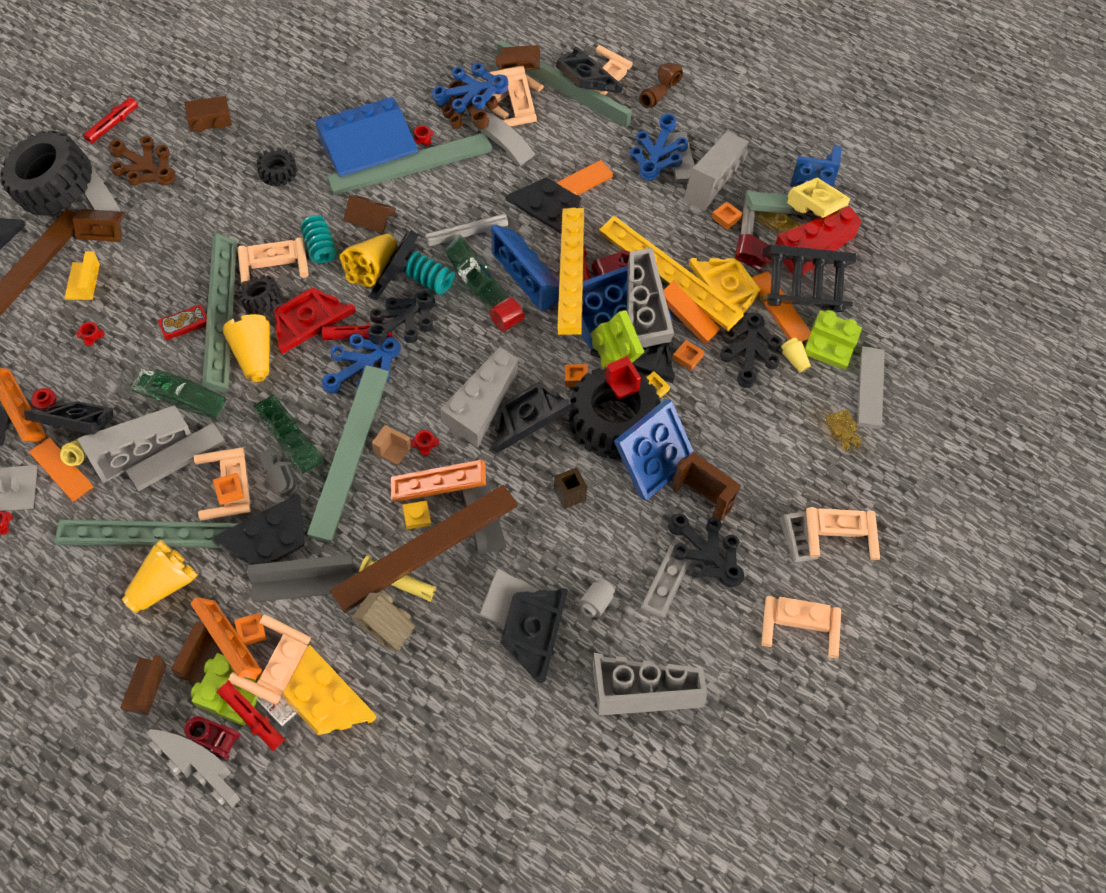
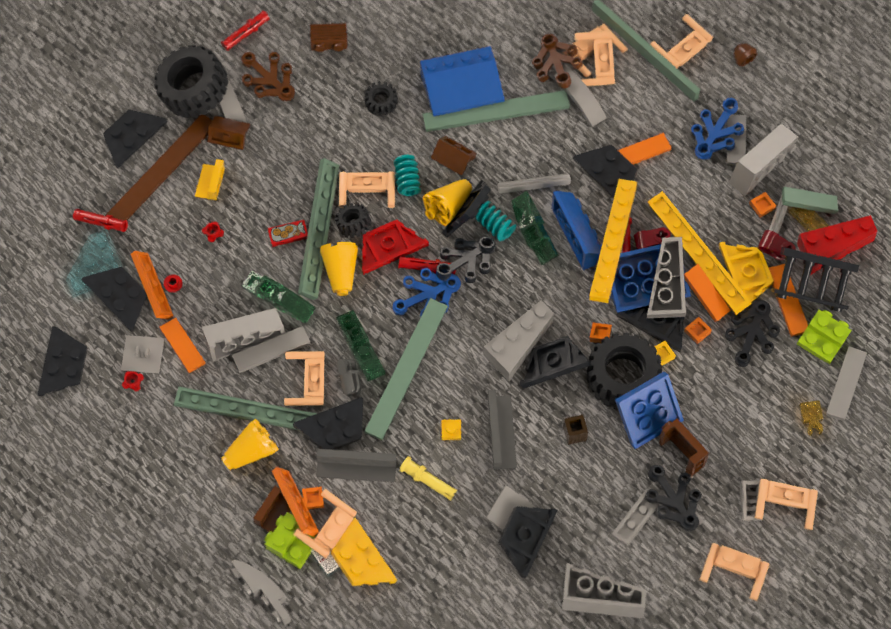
camera: 15 degrees right, 5 degrees up
(72, 453) = (194, 334): light yellow cone -> none
(73, 416) = (197, 304): black wing -> none
(144, 685) = (230, 526): reddish brown panel -> none
(216, 738) = (279, 574): dark red piece -> none
(228, 488) = (309, 385): orange plate -> none
(250, 715) = (312, 570): red pin -> none
(384, 620) = (413, 510): dark tan brick -> none
(391, 445) = (440, 369): medium nougat panel -> none
(422, 436) = (467, 364): red plate -> none
(423, 135) = (511, 80): red plate -> none
(423, 548) = (453, 458): reddish brown tile -> none
(438, 480) = (472, 405): orange tile -> none
(494, 85) = (562, 47): blue plant -> none
(506, 314) = (553, 269): red piece -> none
(519, 55) = (609, 21): reddish brown panel -> none
(586, 72) = (667, 45): black wing -> none
(596, 599) = (578, 521): light grey brick -> none
(617, 340) = (637, 313): lime plate -> none
(622, 377) = (634, 346): red panel -> none
(651, 96) = (724, 73): reddish brown cone -> none
(796, 354) = (789, 344): light yellow cone -> none
(811, 168) = (851, 179): blue bracket -> none
(818, 197) = (843, 204): light yellow plate -> none

